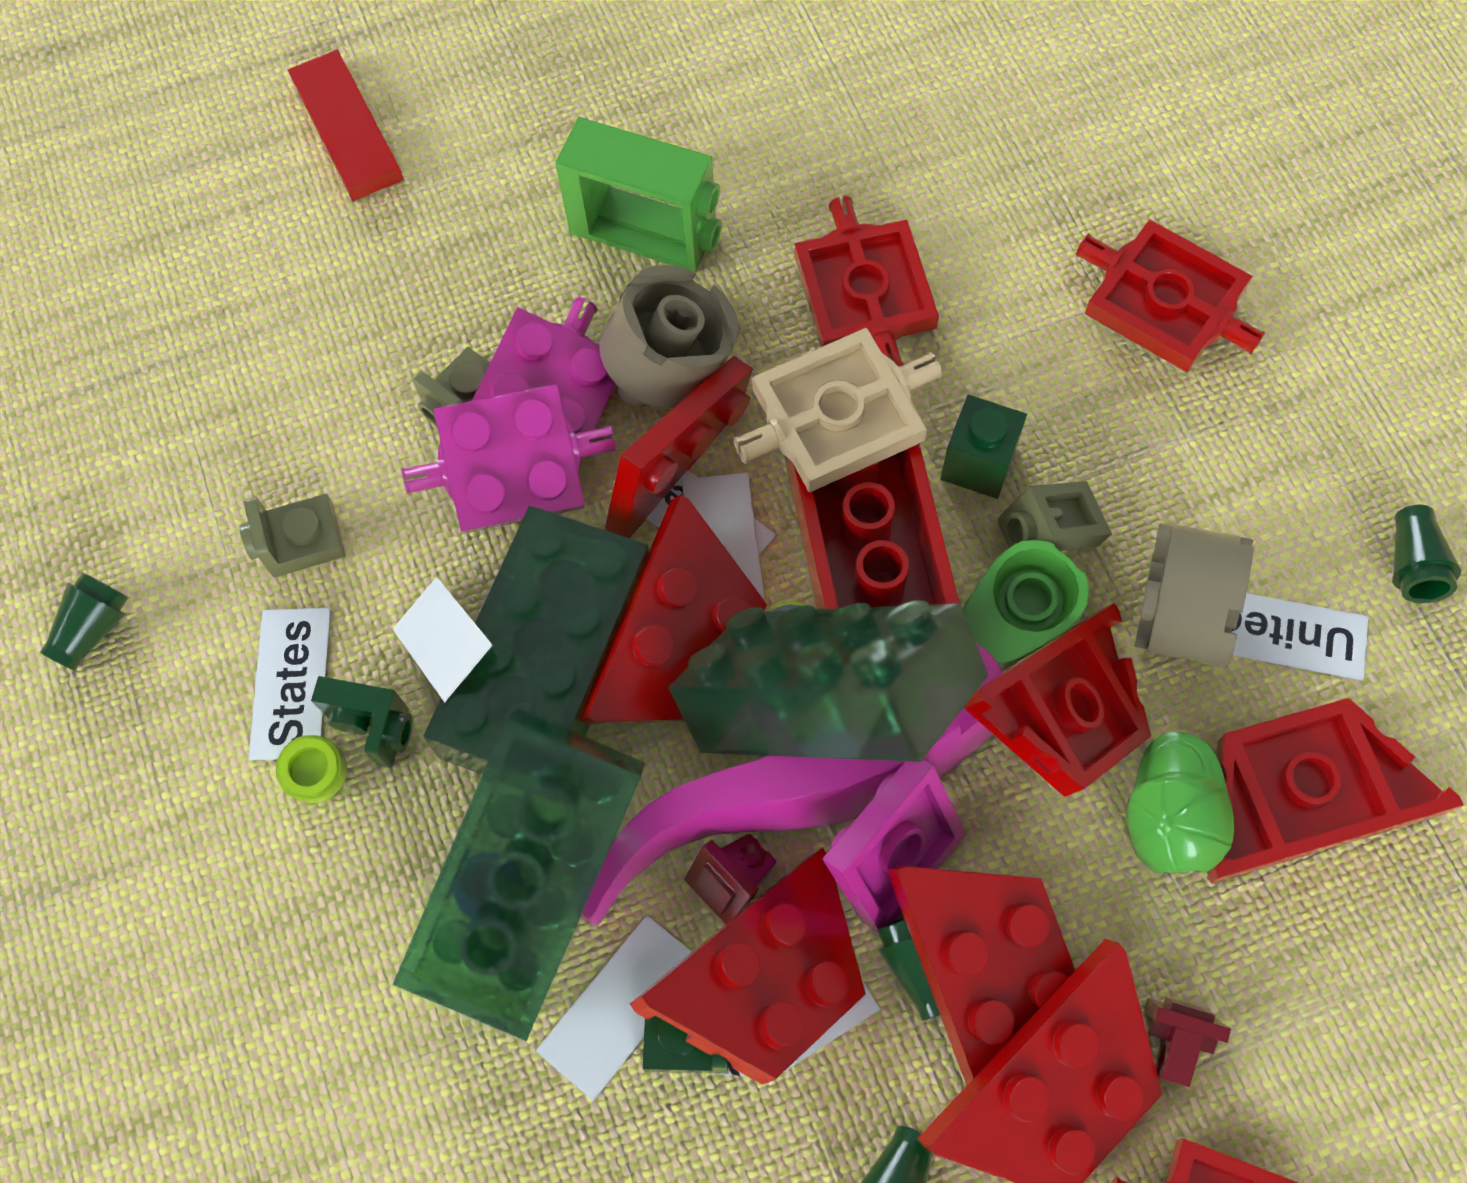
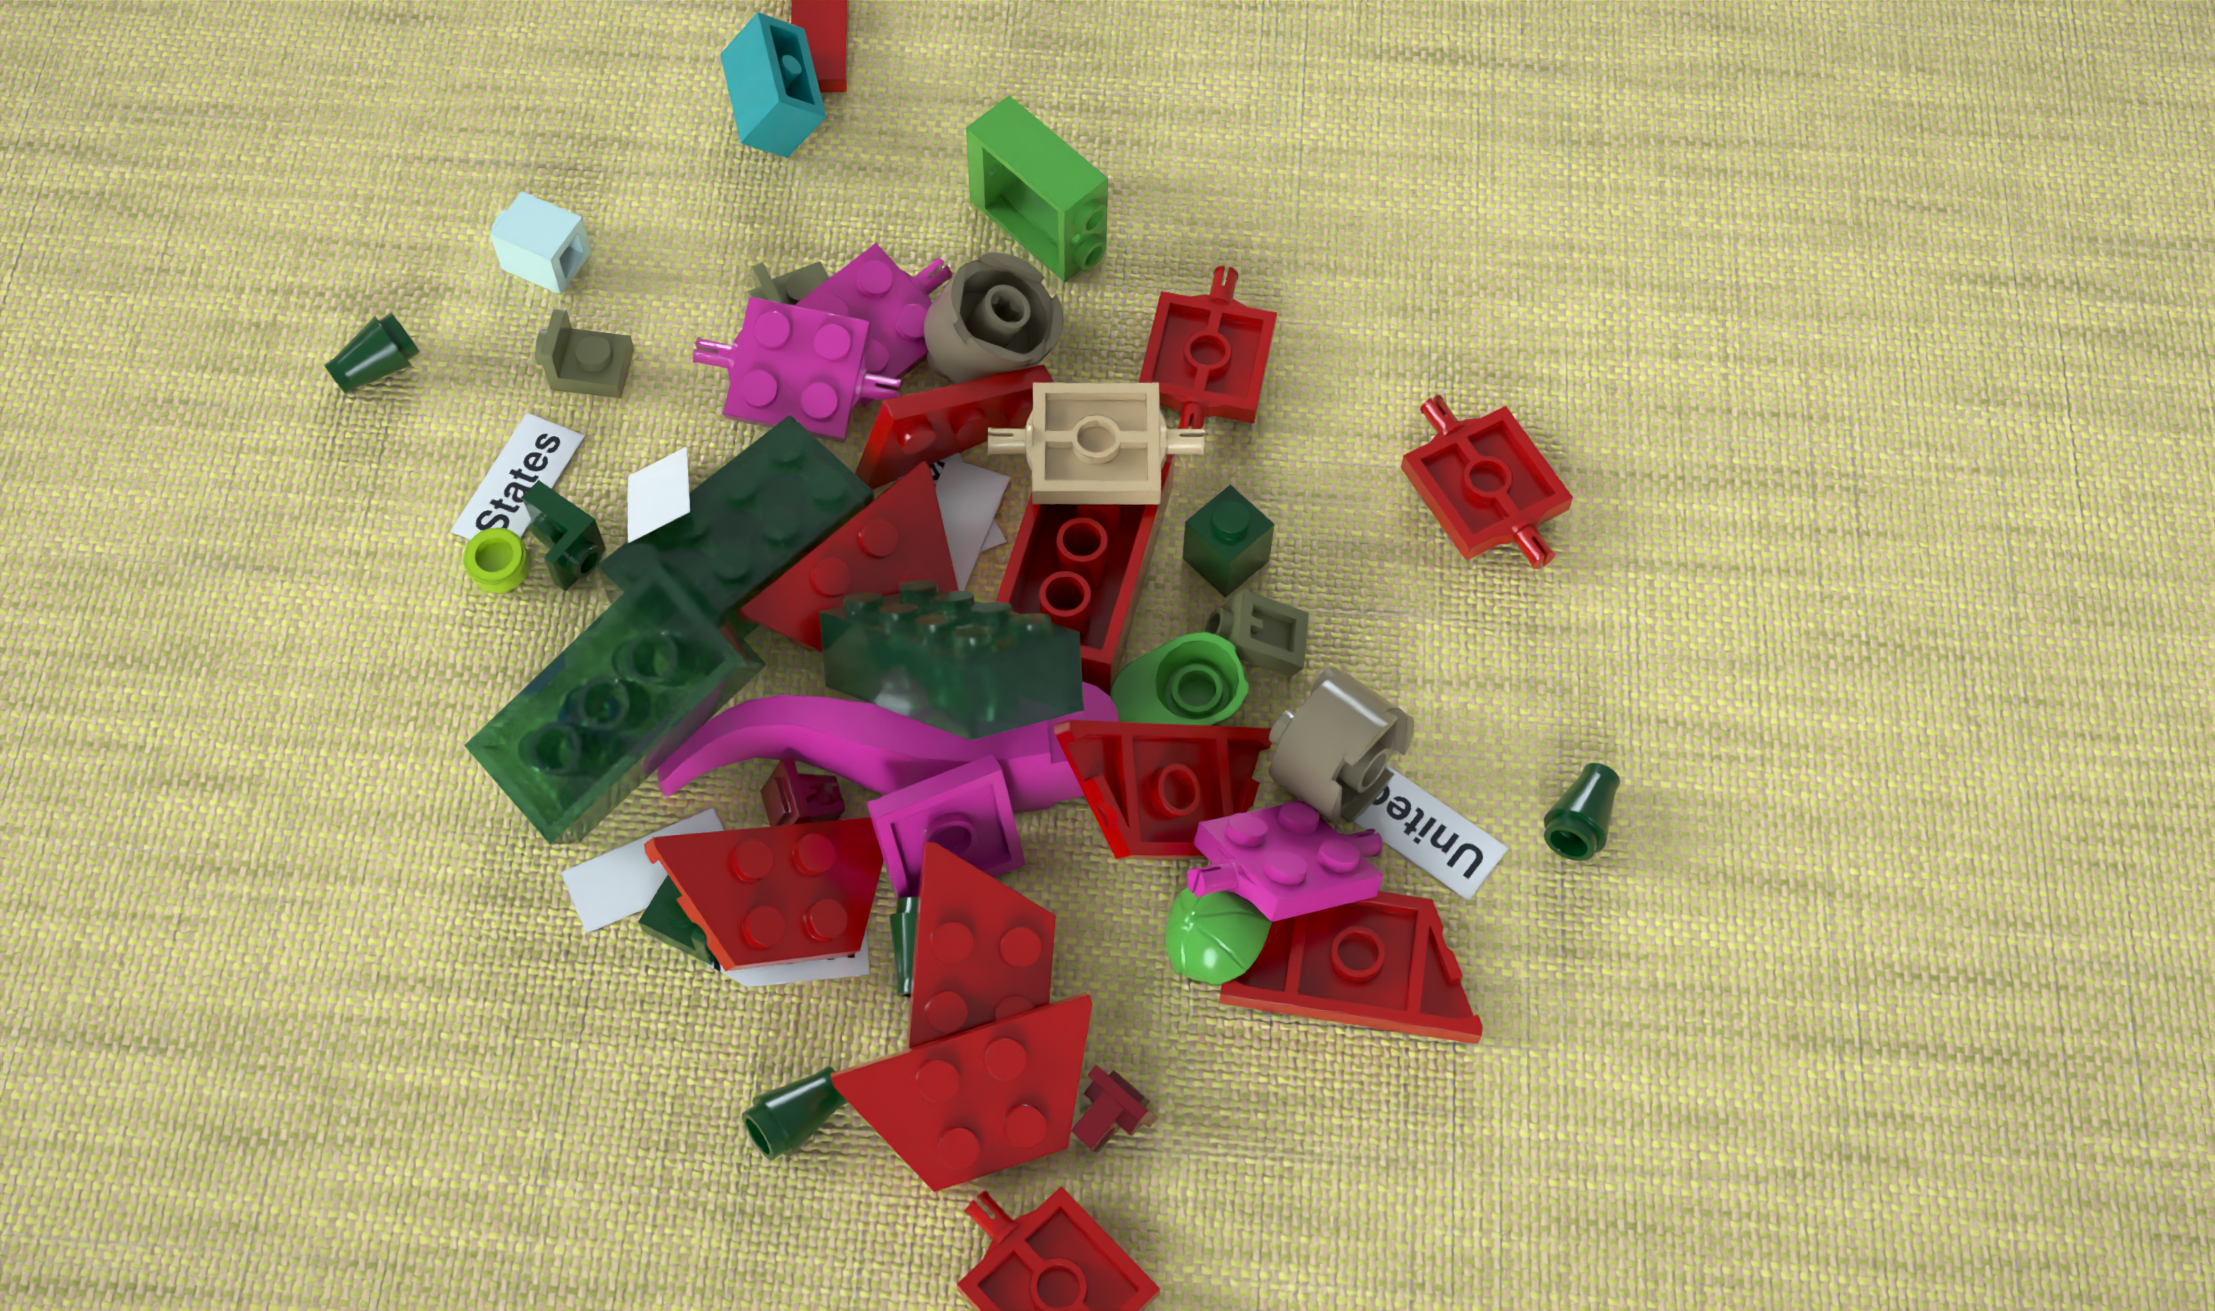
camera: 20 degrees right, 5 degrees down
(192, 440) = (540, 242): none -> light aqua brick
(338, 200) = (772, 85): none -> teal brick
(1212, 726) = (1286, 861): none -> dark pink plate

